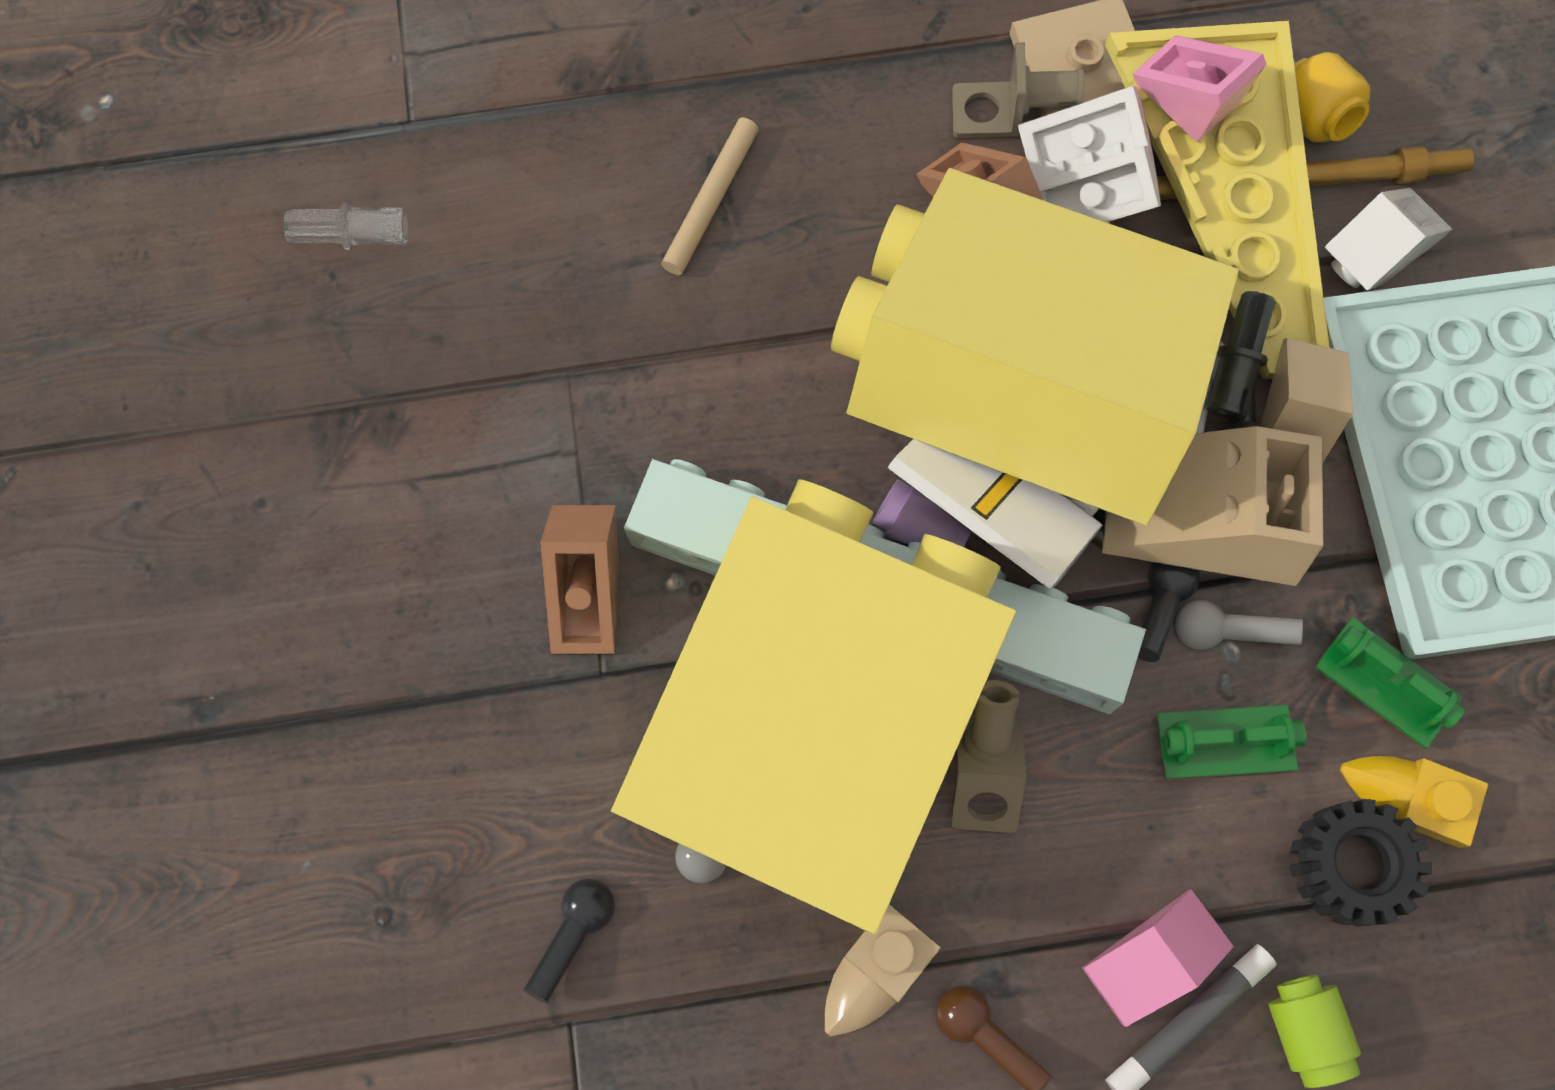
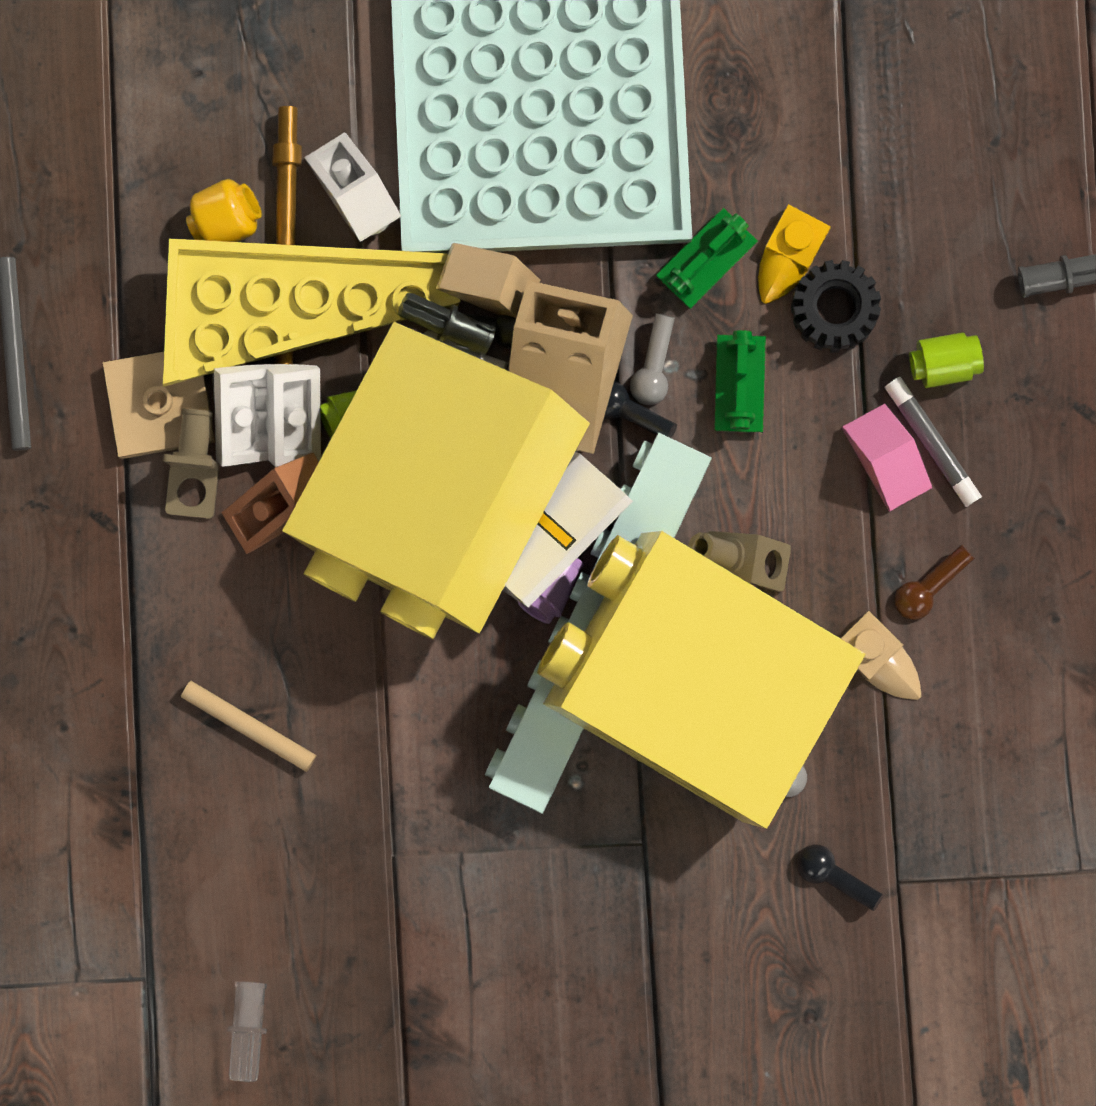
camera: 85 degrees left, 10 degrees up
(581, 578) = (571, 850): nougat slope -> none
(1199, 81) = (223, 325): bright pink slope -> none

